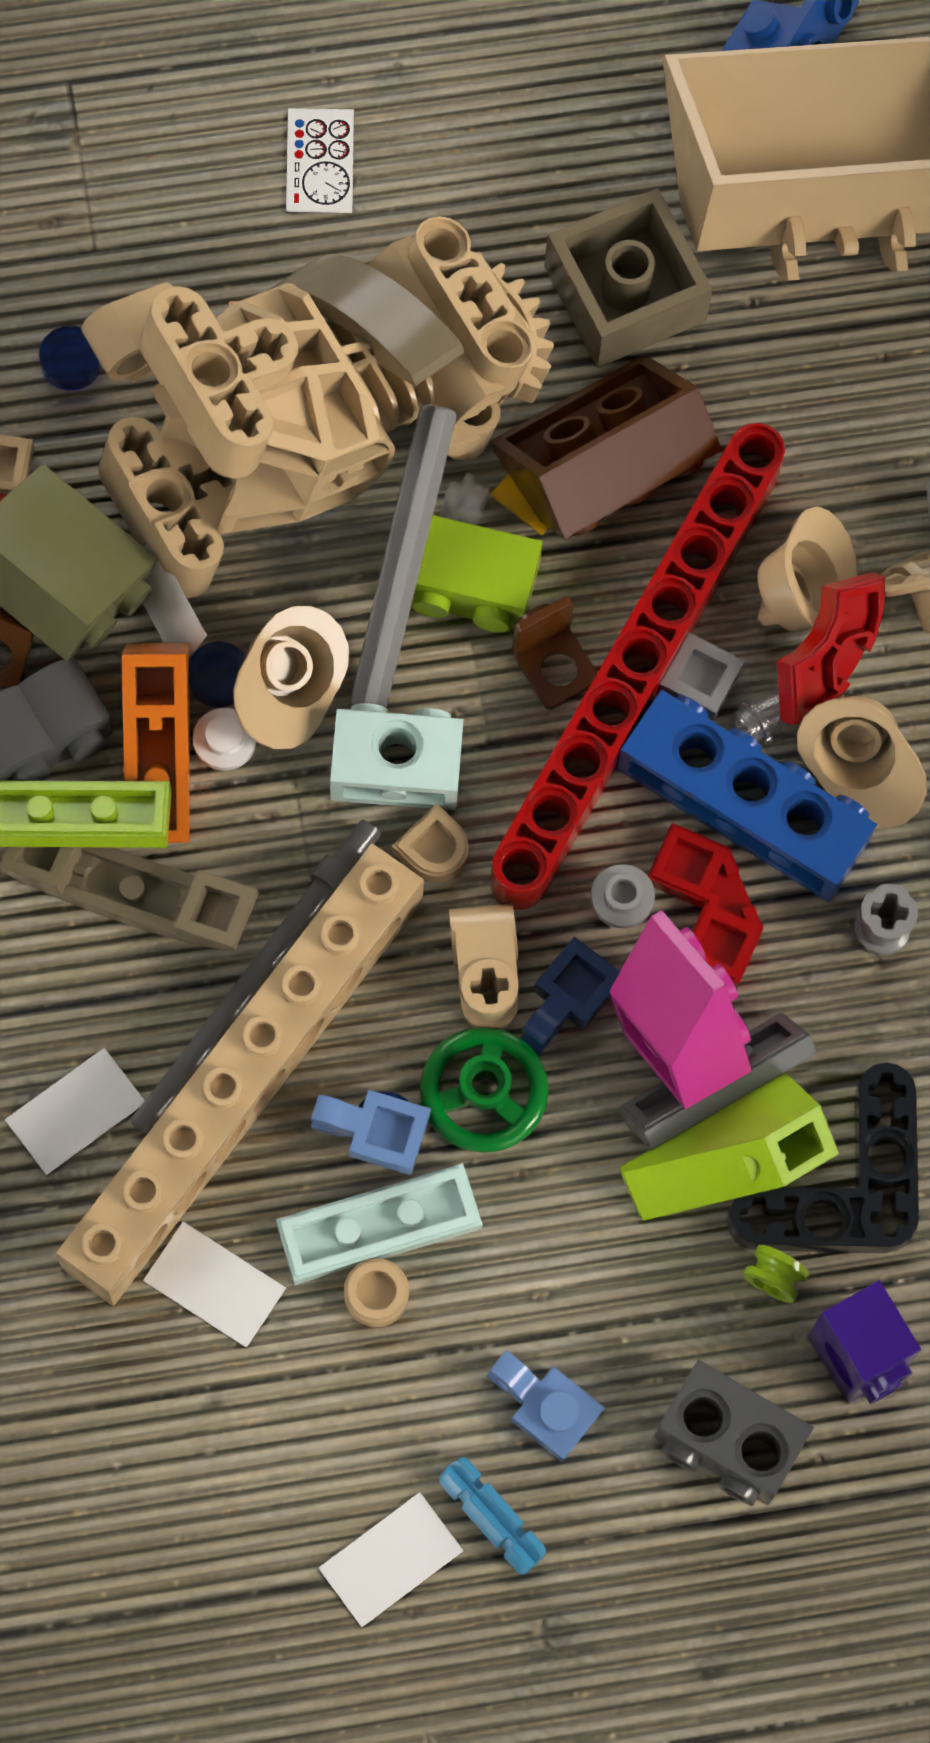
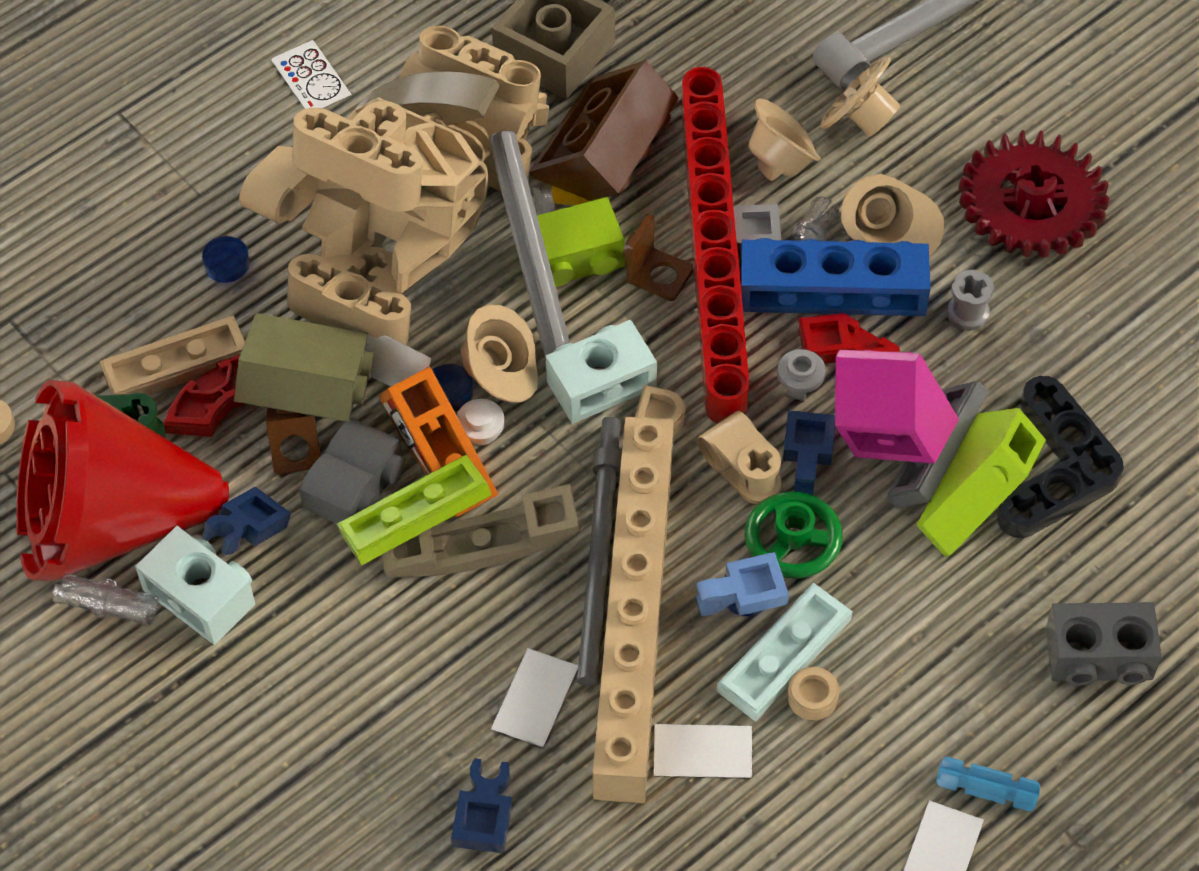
camera: 25 degrees left, 15 degrees down
(552, 1410) = (976, 696): medium blue plate -> none
(775, 1273) = (1057, 535): lime bush -> none
(829, 654) = (828, 155): red tile -> none
(865, 1344) = (1148, 536): dark purple brick -> none

